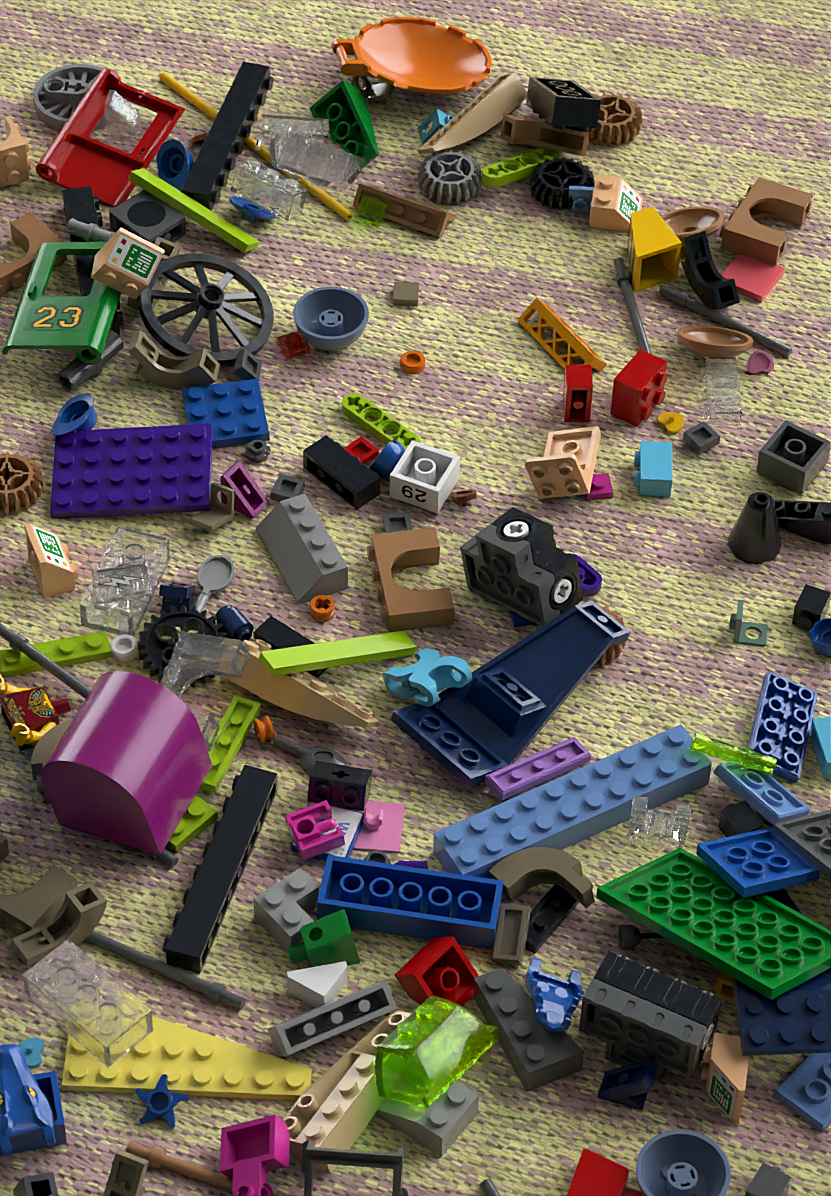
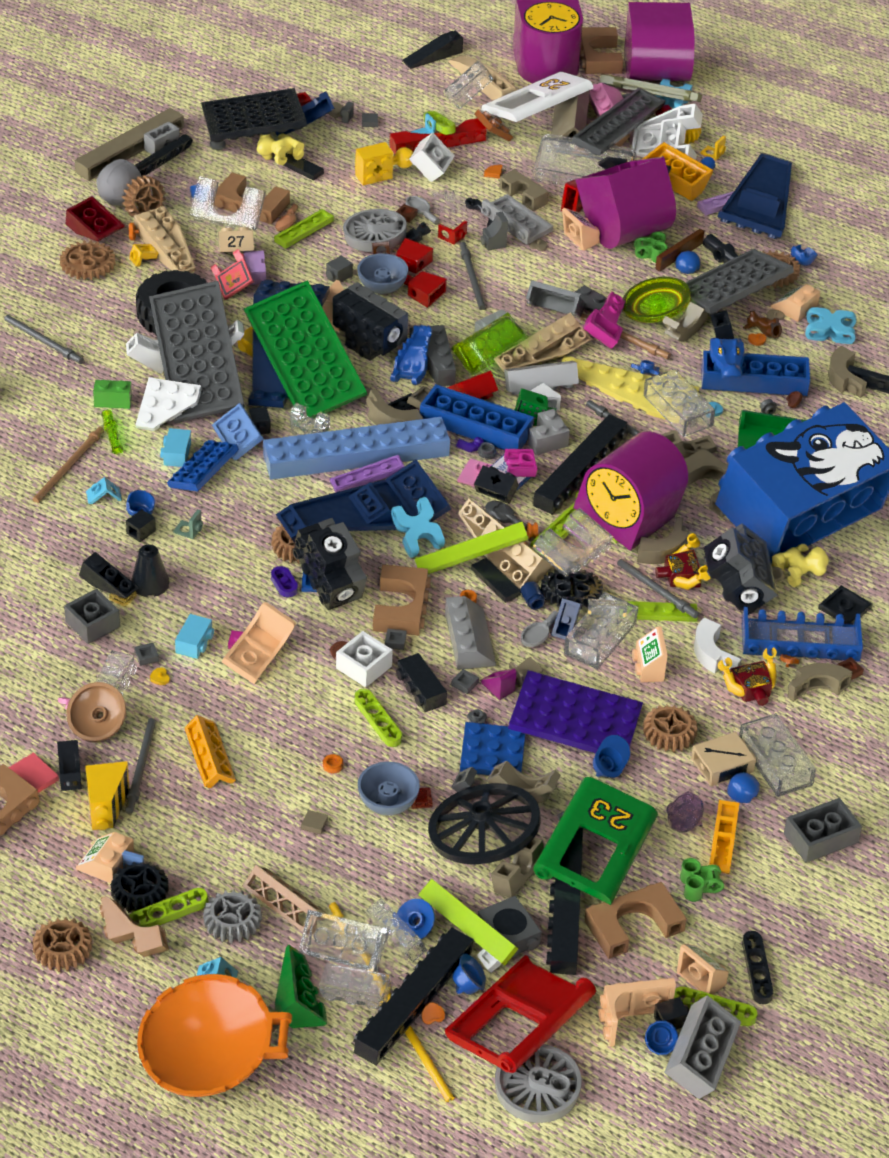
camera: 165 degrees left, 5 degrees down
(89, 232) = (563, 899): light grey pin -> none
(122, 119) = (505, 1032): clear slope -> none
(126, 263) = (548, 823): slope -> none
(363, 450) = (401, 696): red plate -> none
(371, 211) = (313, 897): clear neon green tile -> none
(388, 459) = (385, 678): blue hair -> none
(481, 114) = (187, 959): tan slope -> none
(563, 103) = (106, 934): black brick -> none
(577, 393) = (224, 689): red brick -> none
(639, 388) = (177, 683): red brick -> none
(684, 300) = (66, 734): dark grey bar -> none
(694, 219) = (58, 800): medium nougat dish -> none
(741, 756) = (241, 438): clear neon green pin -> none
(757, 862) = (267, 382): blue plate -> none

